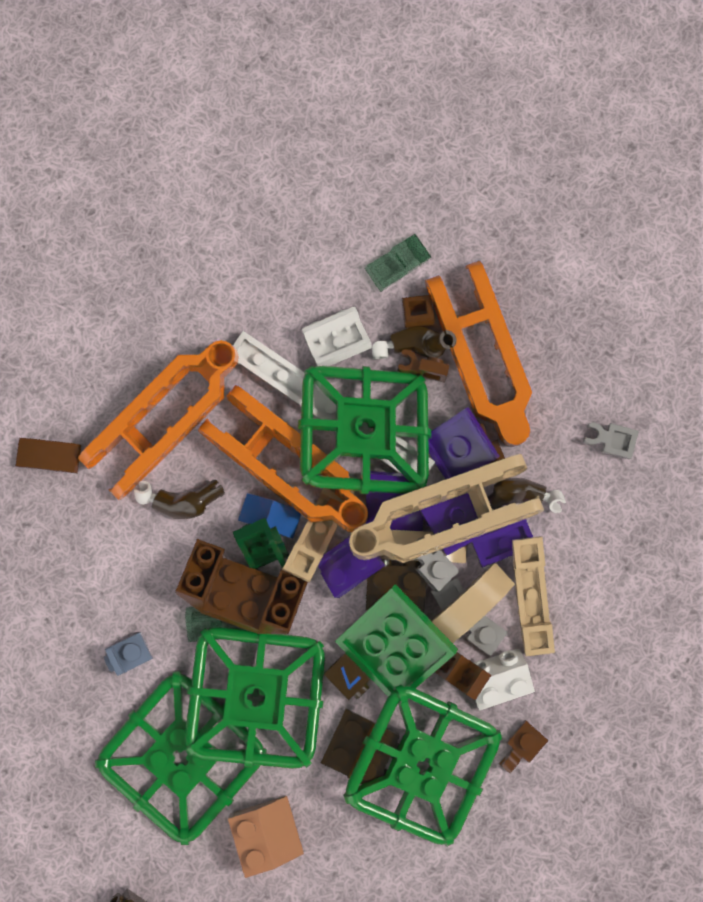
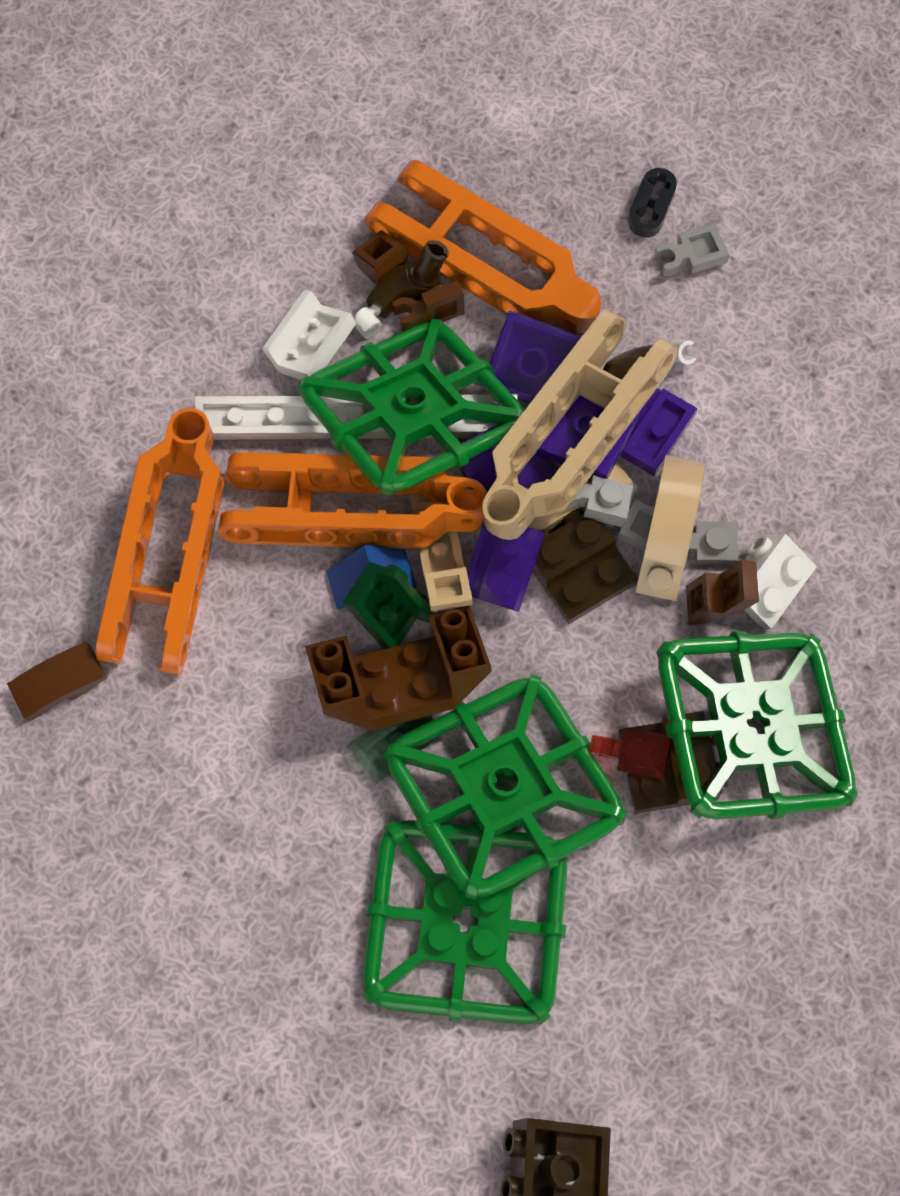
camera: 30 degrees left, 15 degrees down
(127, 654) = (314, 843): sand blue bracket -> none
(182, 506) = (256, 634): dark brown arm -> none
(265, 836) = (632, 939): nougat slope -> none
(344, 733) = (638, 753): none -> clear red plate
(348, 677) = (594, 690): dark brown brick -> none
(396, 643) = (620, 608): green plate -> none
(398, 262) = (320, 224): clear green slope -> none
(525, 744) = (851, 632): reddish brown plate -> none
(532, 596) = (731, 465): tan slope -> none
(608, 382) = (659, 205): none -> black beam

